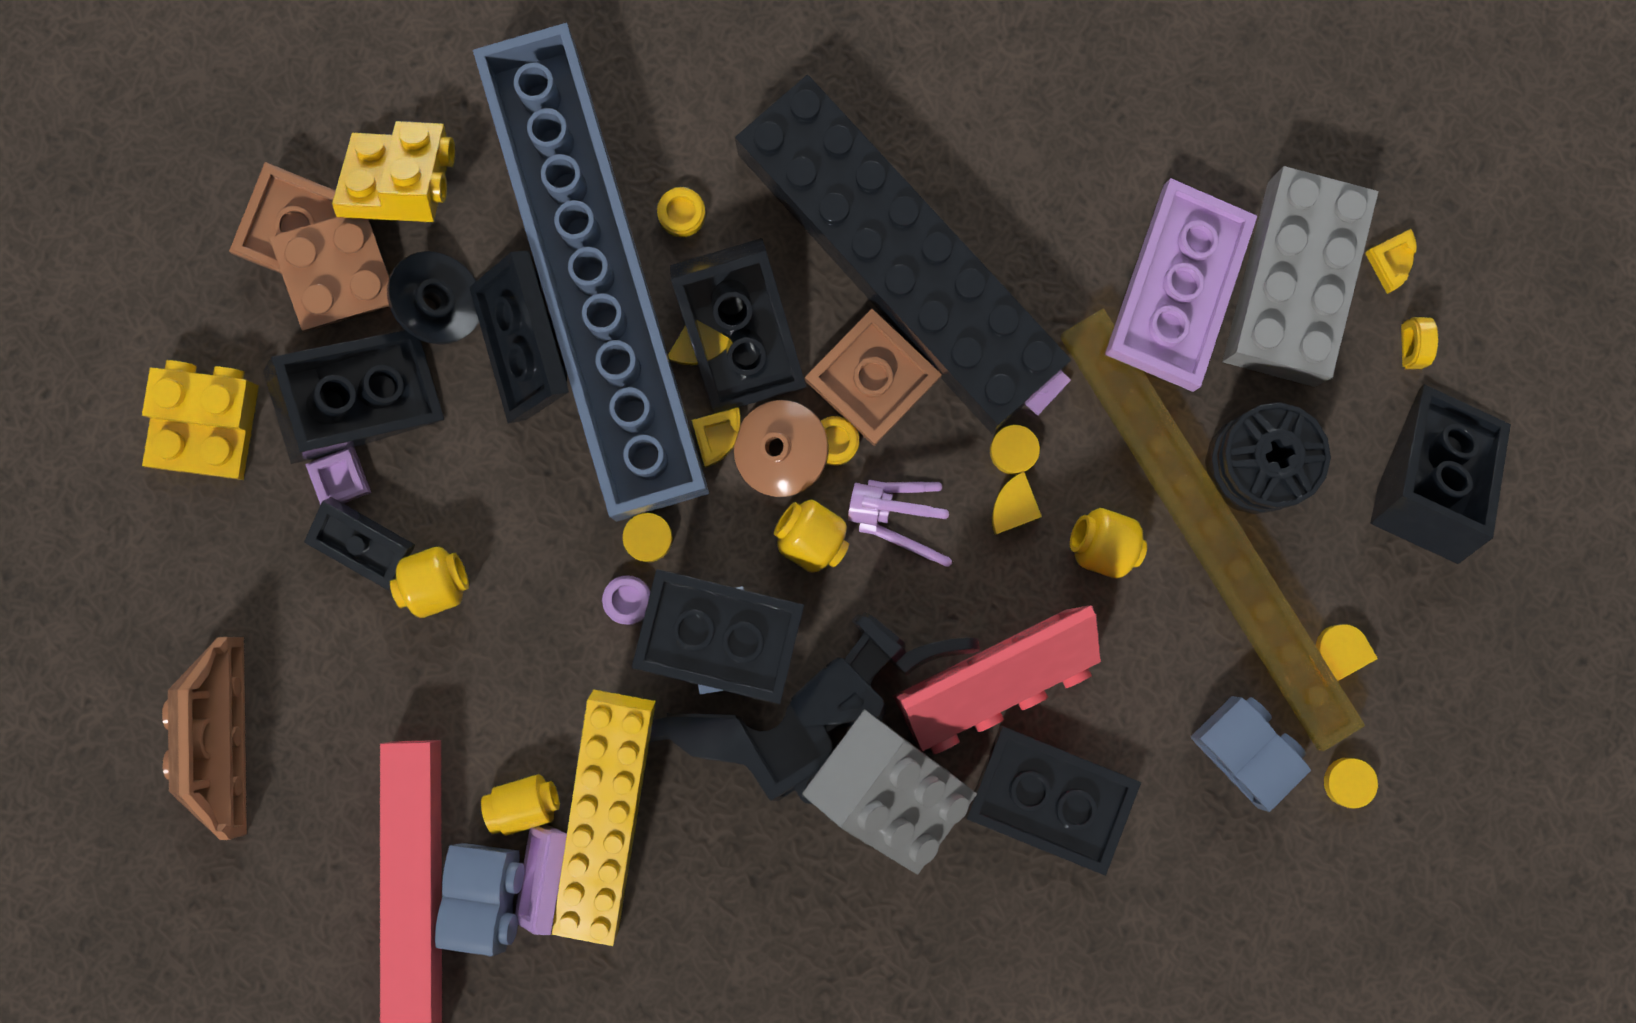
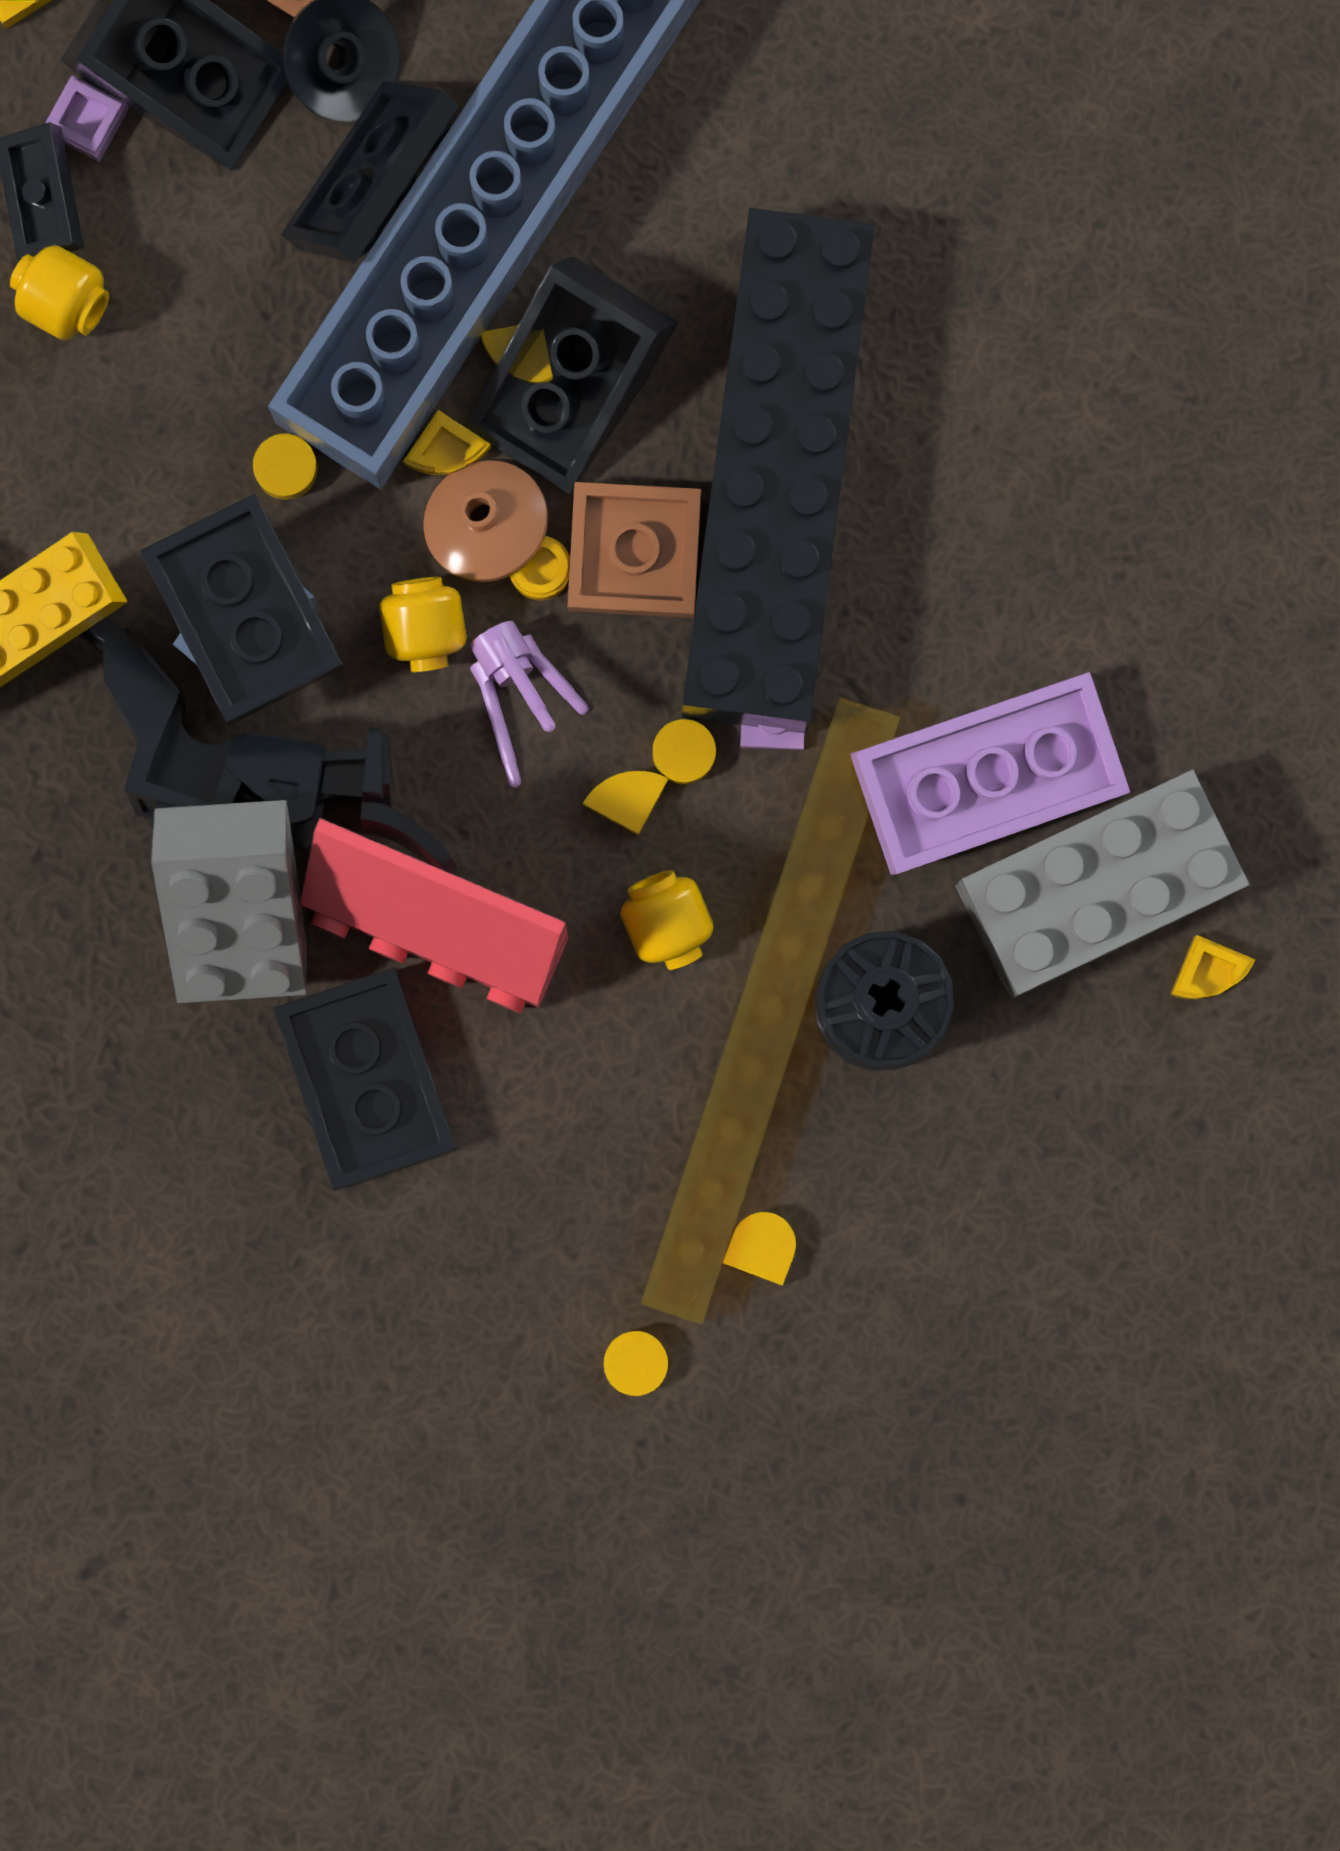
camera: 45 degrees right, 0 degrees up
(626, 599) = (203, 494): lavender tile -> none
(681, 212) = (638, 222): yellow tile -> none
(1252, 752) = (579, 1235): sand blue brick -> none
(1419, 342) = (1140, 1062): yellow tile -> none
(1443, 477) = (1026, 1197): black slope -> none

